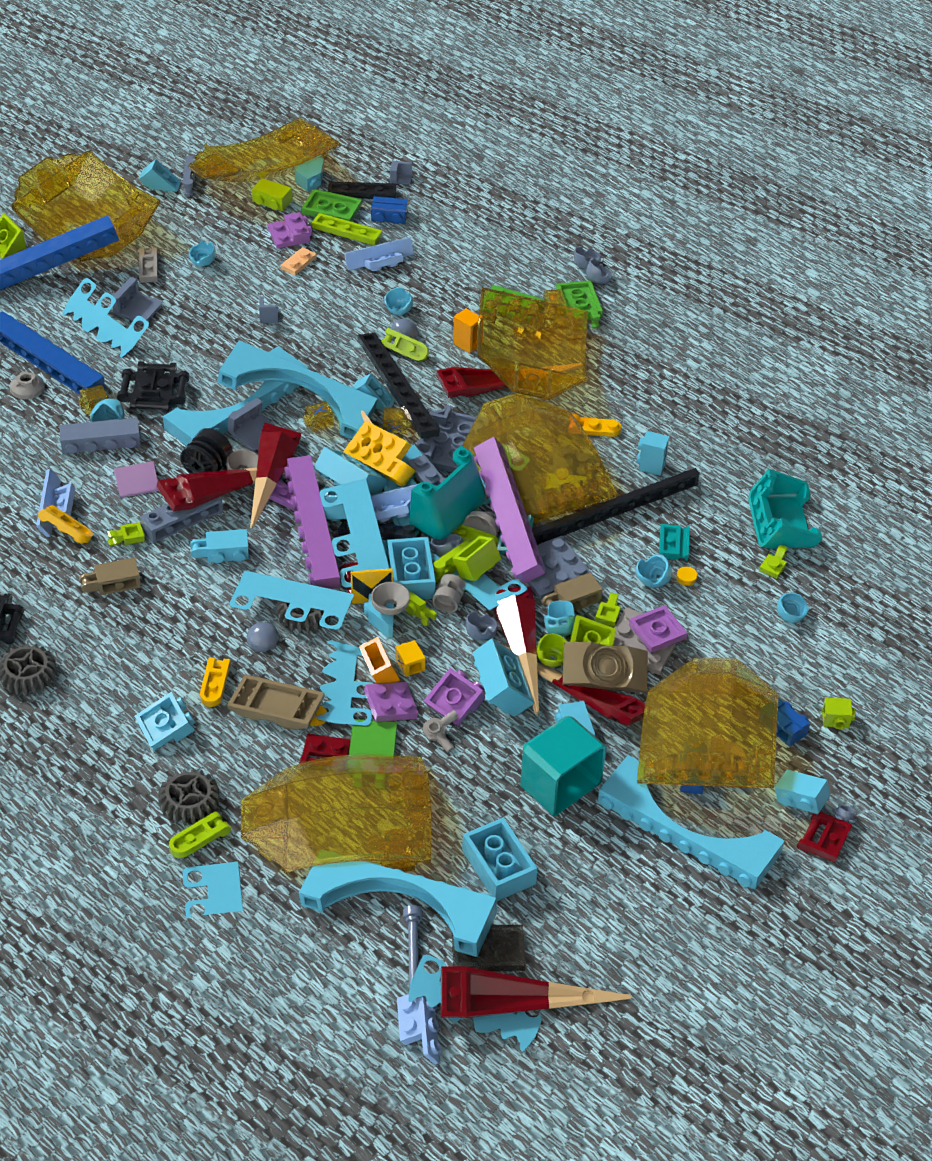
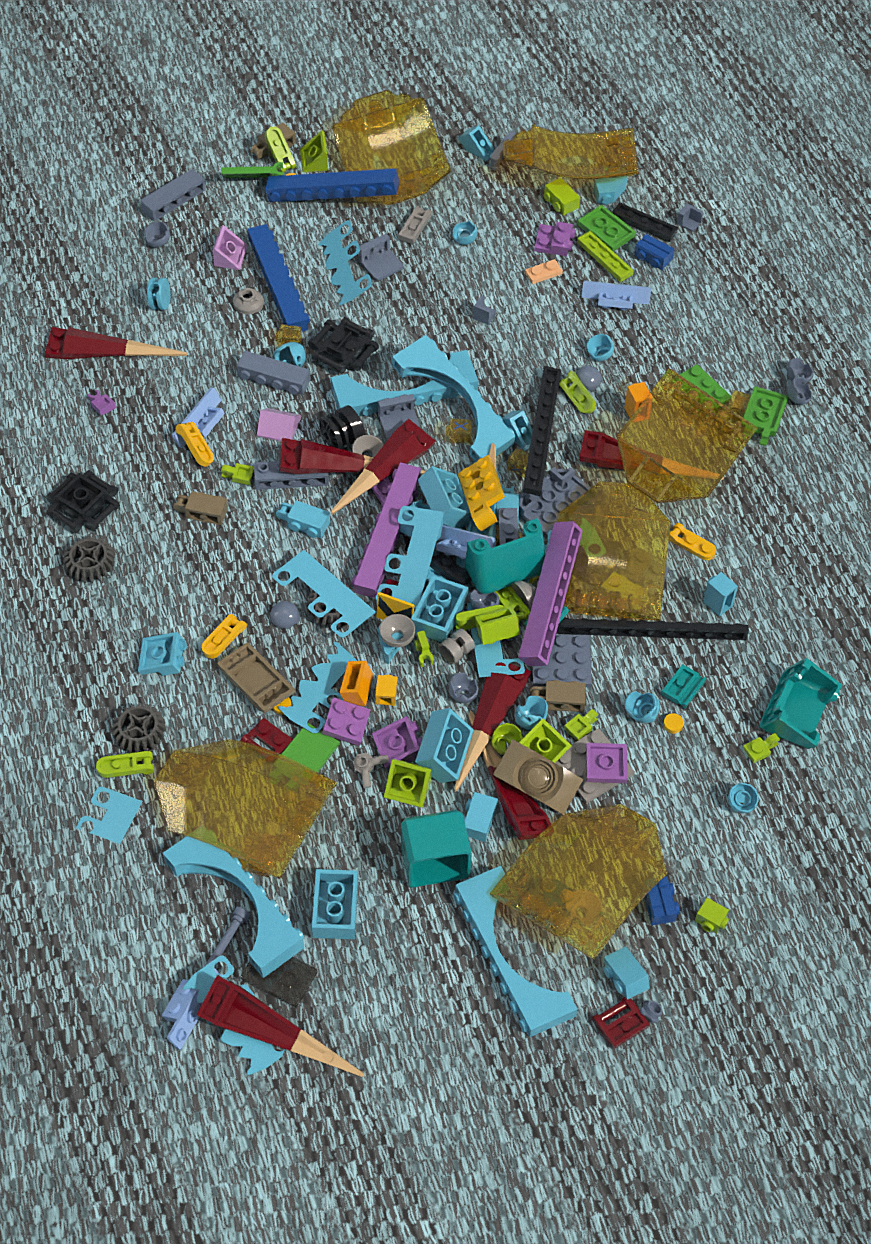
camera: 30 degrees right, 10 degrees up
(489, 726) = (408, 783): none -> lime slope

